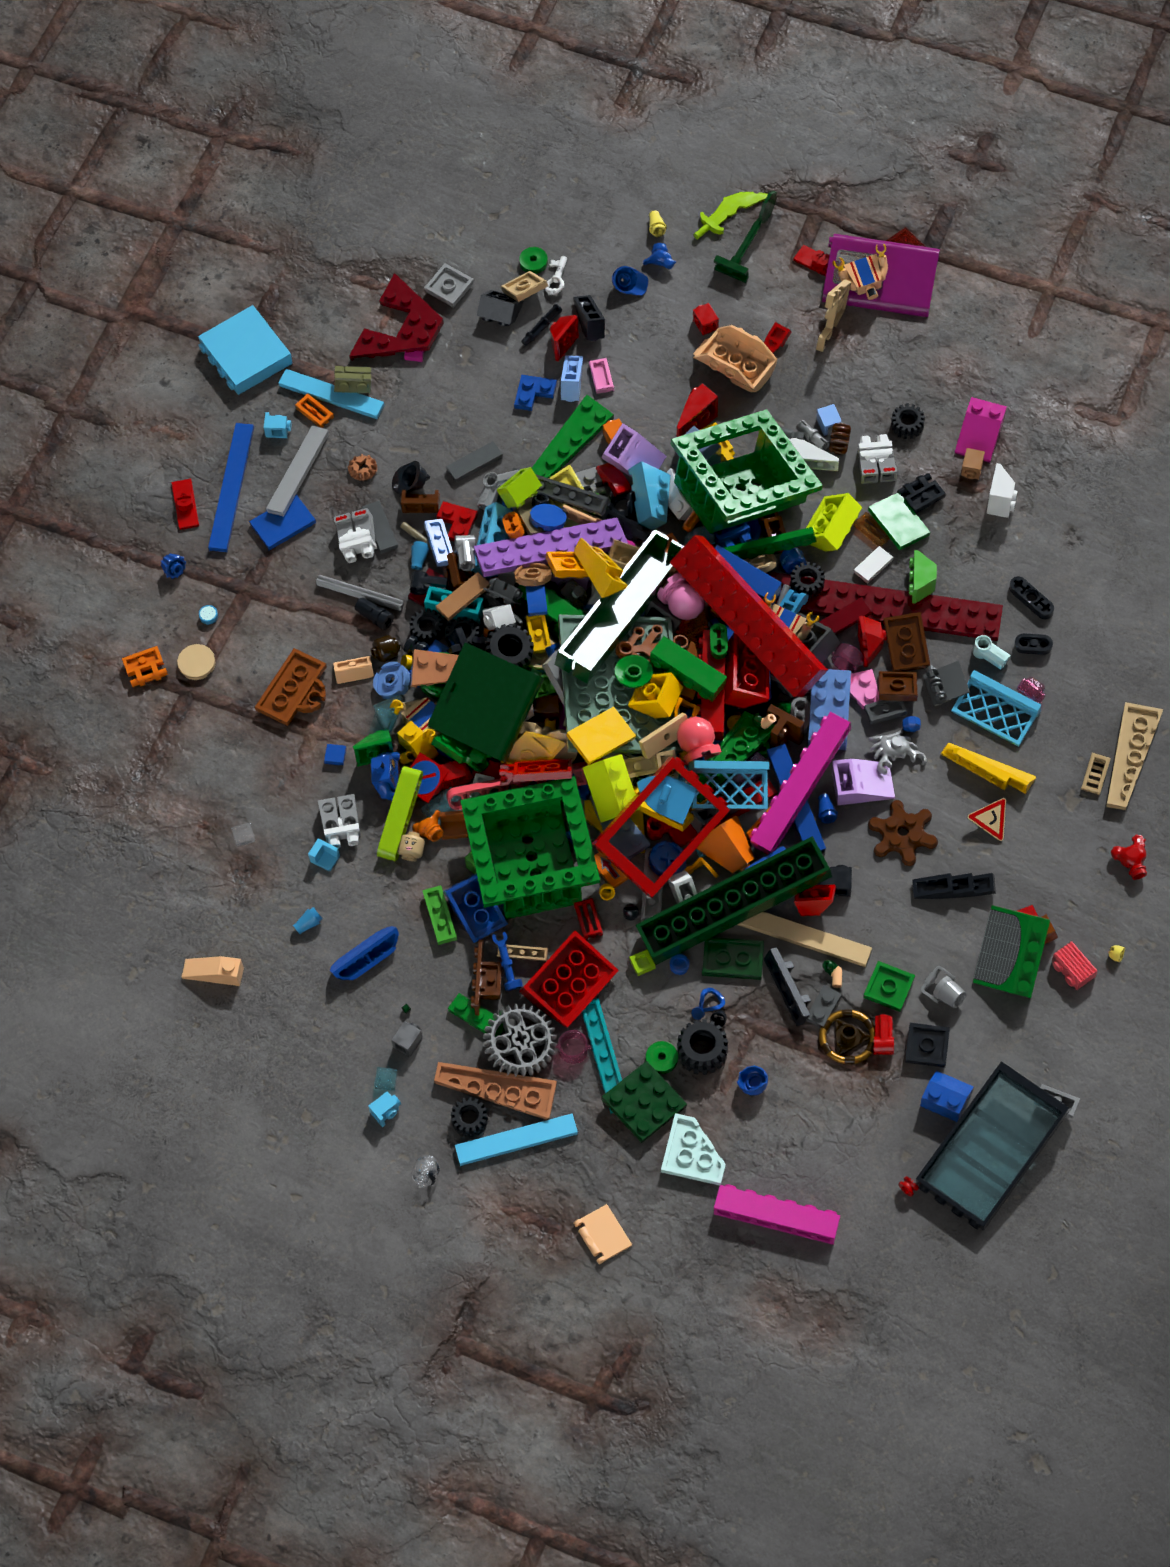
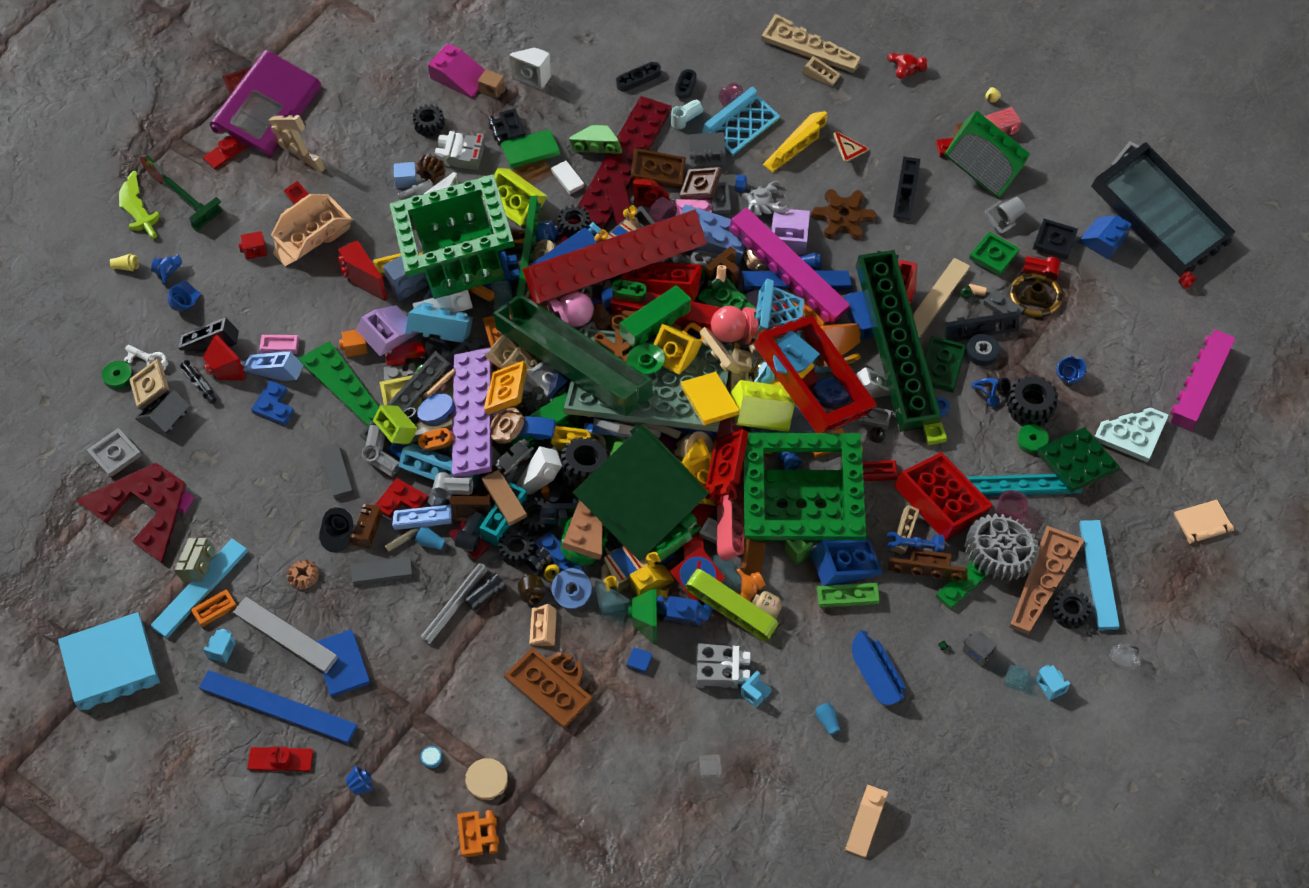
camera: 80 degrees left, 5 degrees down
(356, 534) = (388, 590): hips -> none
(600, 568) = (526, 361): yellow wedge -> none
(761, 1003) = (983, 358): none -> black bush
(865, 274) = (266, 104): torso -> none

